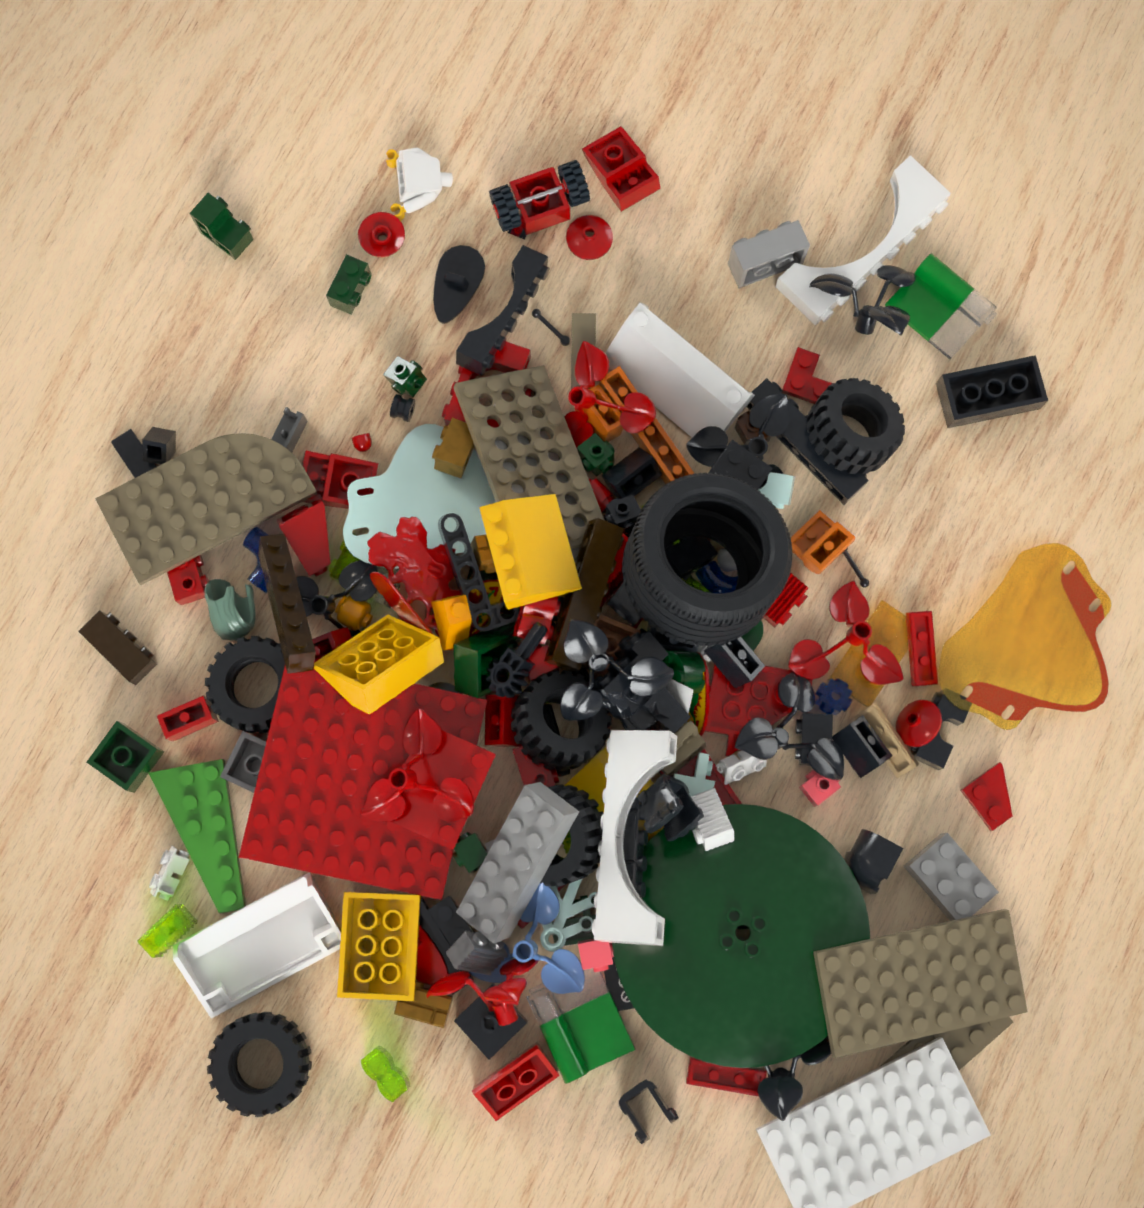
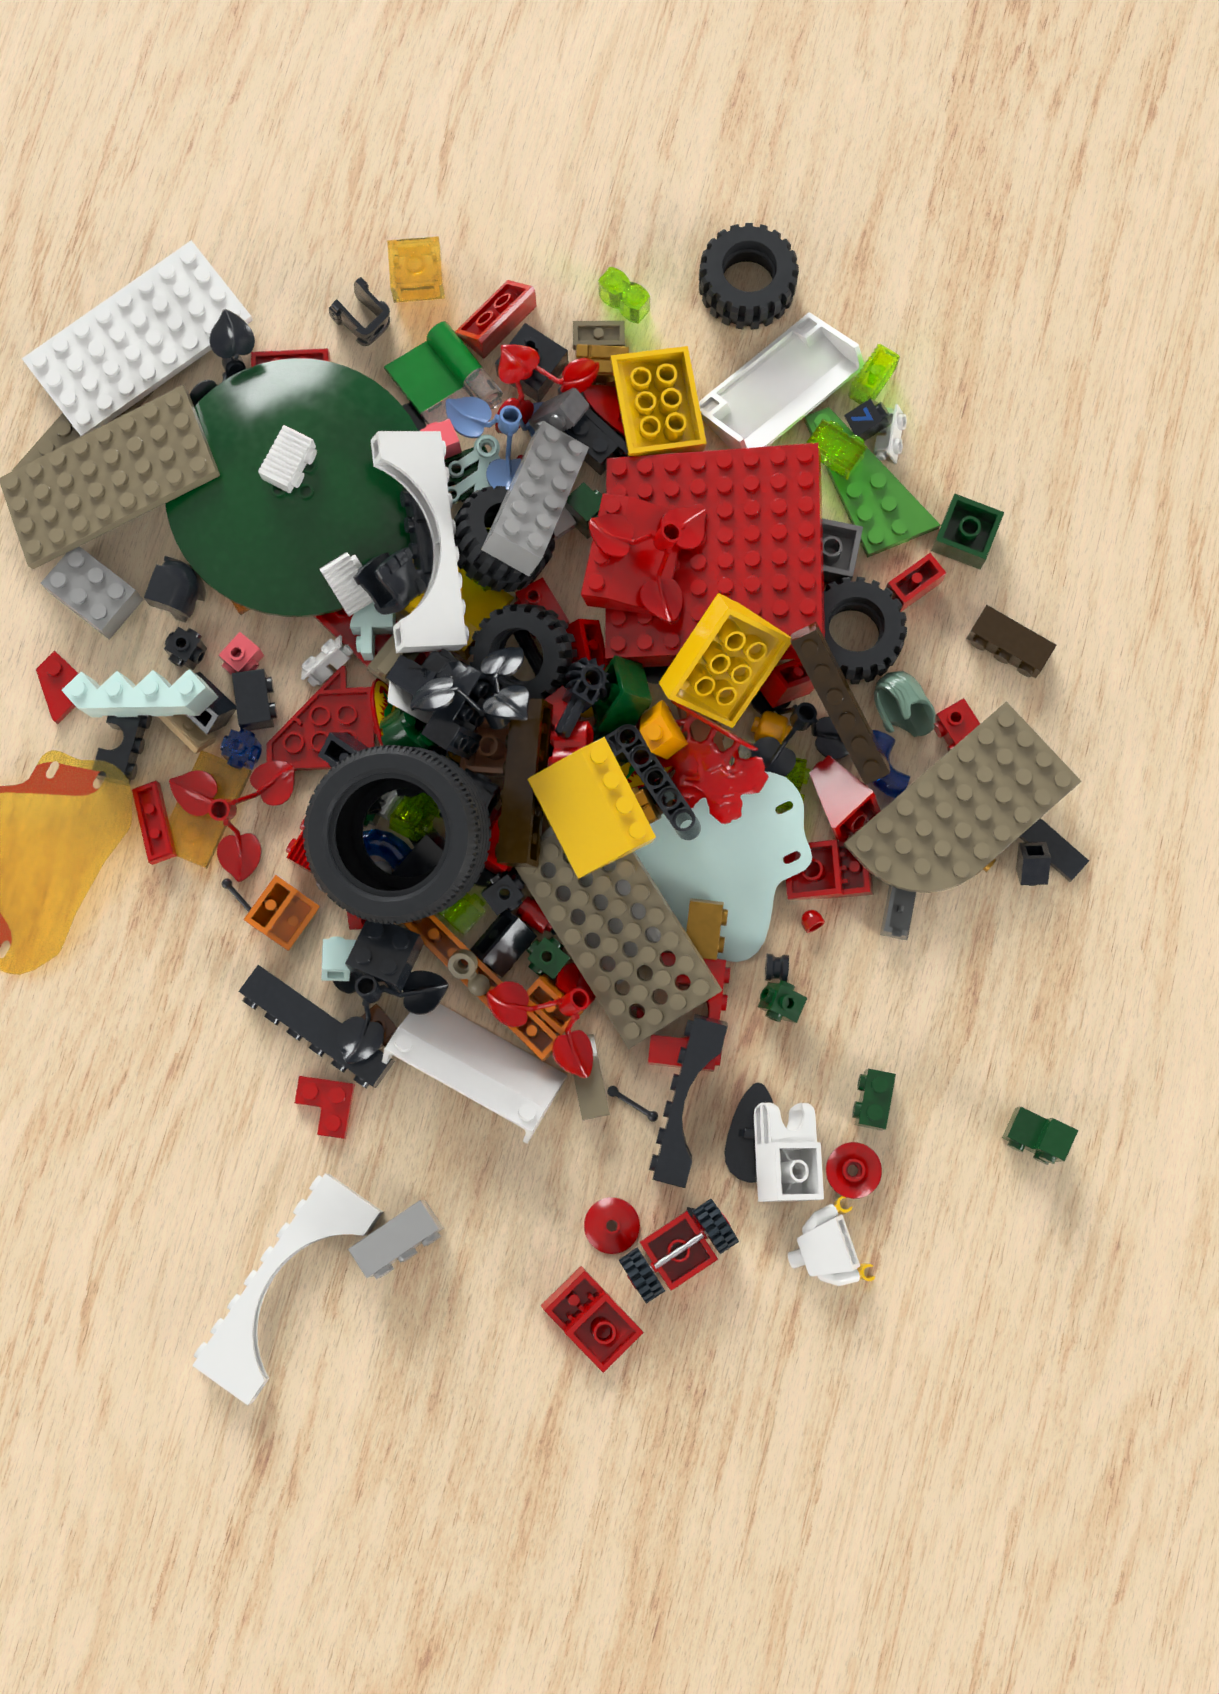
camera: 170 degrees right, 0 degrees up
(185, 888) = (868, 419): none -> black brick
(223, 863) = (837, 448): none -> clear neon green brick
(420, 1038) = (598, 333): none -> dark tan plate
(432, 251) = (787, 1156): none -> white brick
(584, 1147) = (416, 269): none -> clear yellow container
(669, 452) = (477, 983): none -> dark tan plate
(745, 945) = (288, 459): none -> white brick
(763, 742) = (309, 670): black plant -> none
(862, 807) = (185, 648): none -> black brick
(871, 409) = (232, 1059): black tyre -> none
(890, 316) = (238, 1177): black plant -> none
(925, 726) = (136, 740): red dish -> none
(931, 757) = (151, 696): none -> light aqua brick
(943, 306) = (185, 1224): green door -> none
(991, 391) = (113, 1127): black brick -> none

